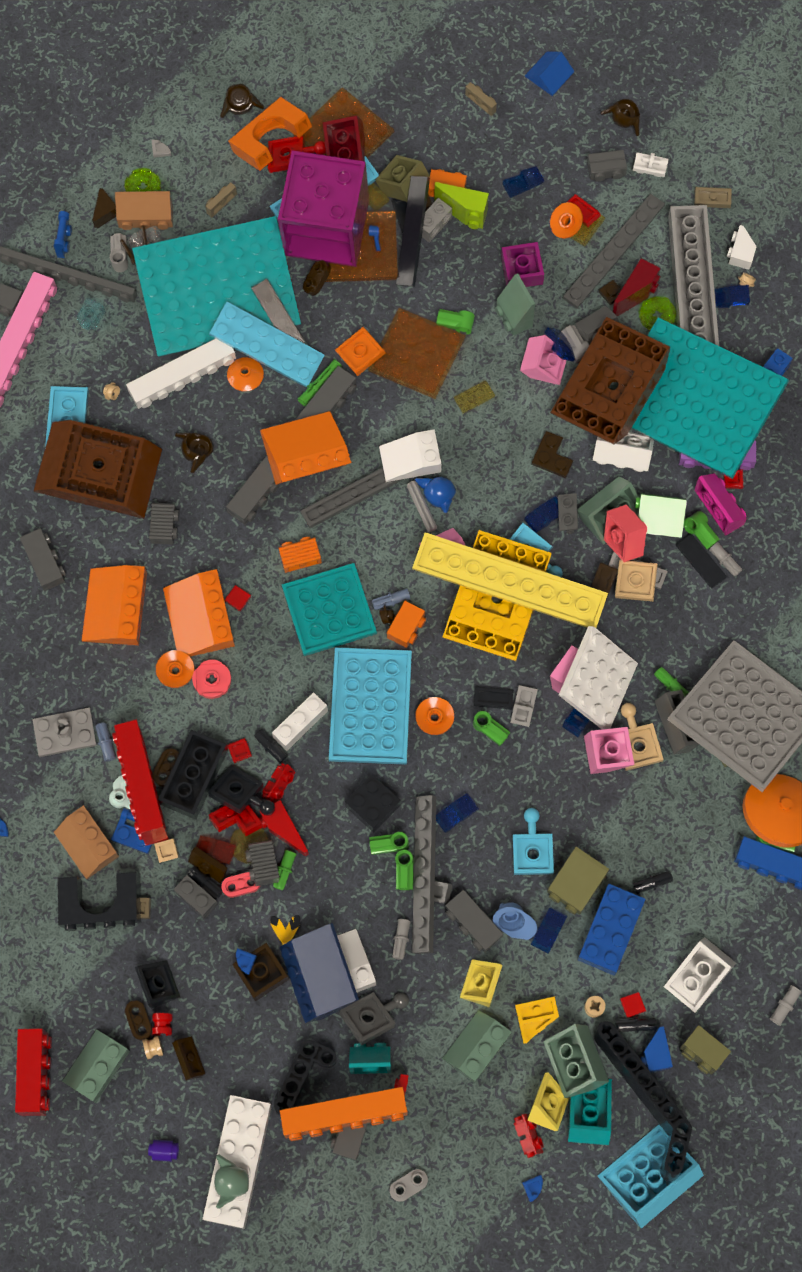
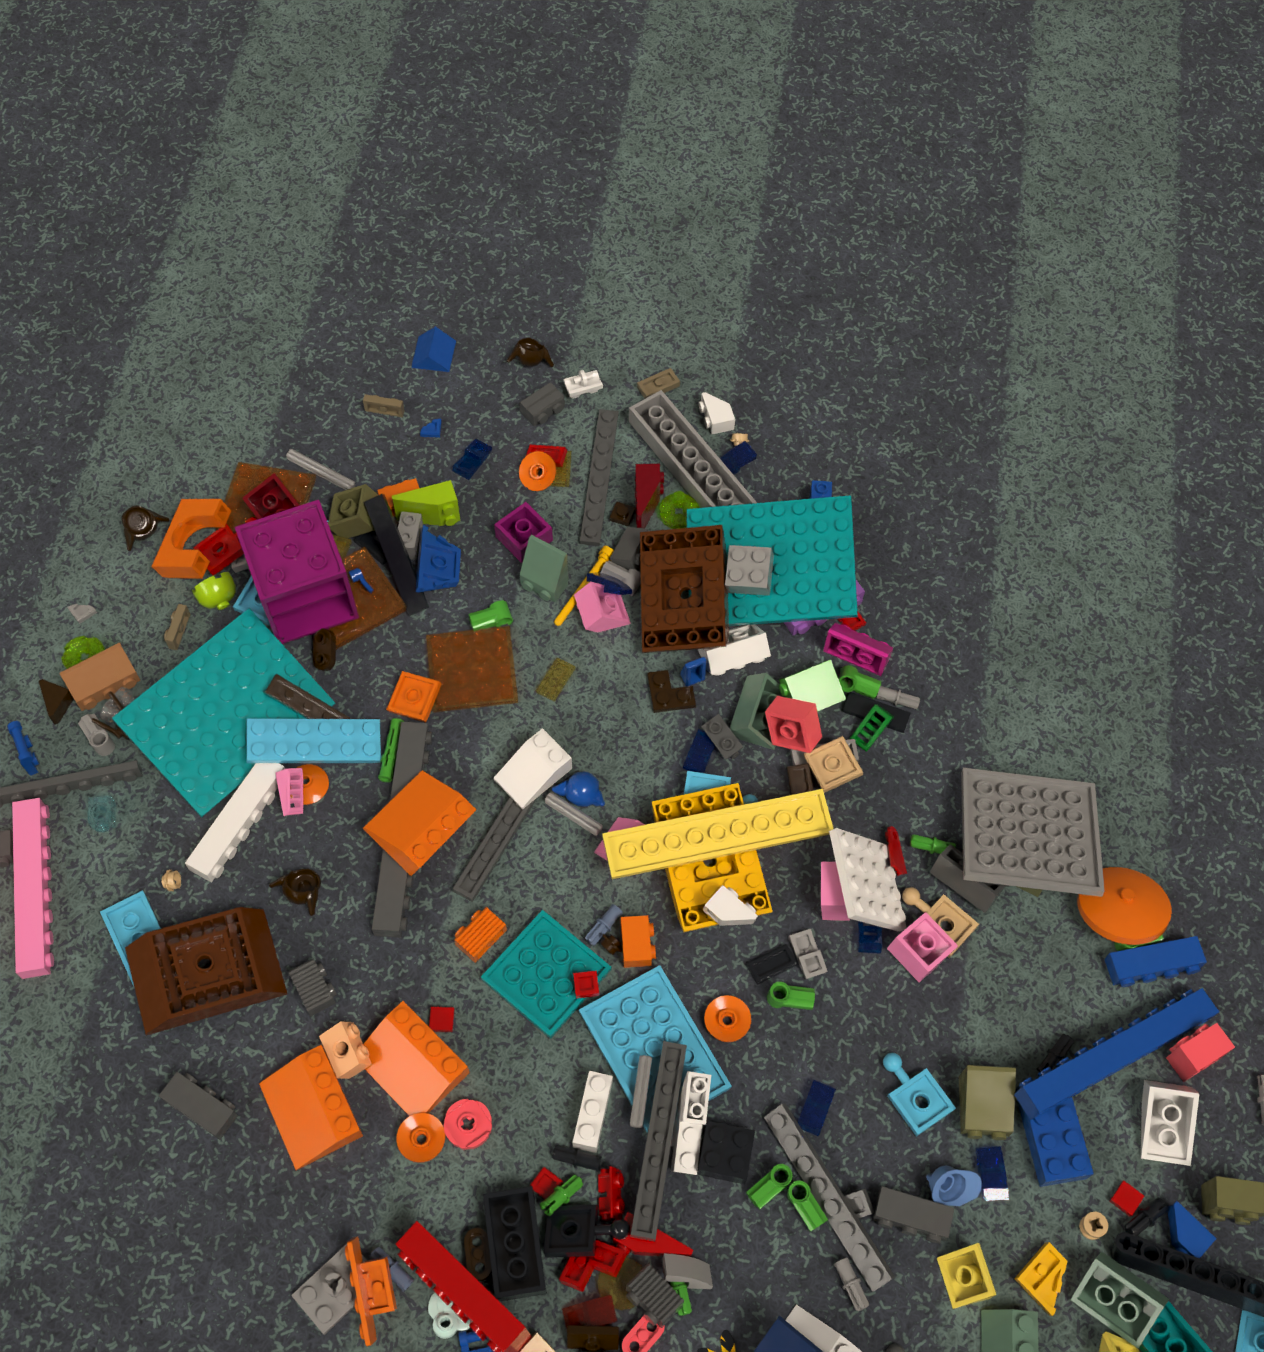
camera: 35 degrees left, 10 degrees down
(84, 745) = (372, 1288): none -> orange bracket
(159, 580) = (335, 1043): none -> light nougat brick
(237, 368) = (294, 778): none -> bright pink slope
(245, 763) = (562, 1194): none -> bright green axle
(263, 187) = (215, 591): none -> lime cylinder
(297, 861) = (687, 1269): none -> light grey slope
(331, 766) = (658, 1142): none -> dark grey plate
(340, 728) = (640, 1092): none -> light grey axle
(349, 633) = (586, 984): none -> red plate
(360, 768) = (688, 1123): none -> white slope
(400, 128) = (320, 470): none -> light grey axle
(441, 254) = (437, 563): none -> blue wing
(481, 640) = (728, 910): none -> white slope
(507, 139) = (432, 429): none -> blue tile
(573, 319) = (604, 556): none -> yellow piece
(579, 450) = (694, 671): none -> blue slope
(639, 672) = (895, 851): none -> red piece
(670, 394) = (749, 570): none -> light grey brick
(694, 905) = (1115, 1053): none -> blue brick
(704, 569) = (870, 716): none -> green slope
(757, 941) = (1199, 1051): none -> coral brick

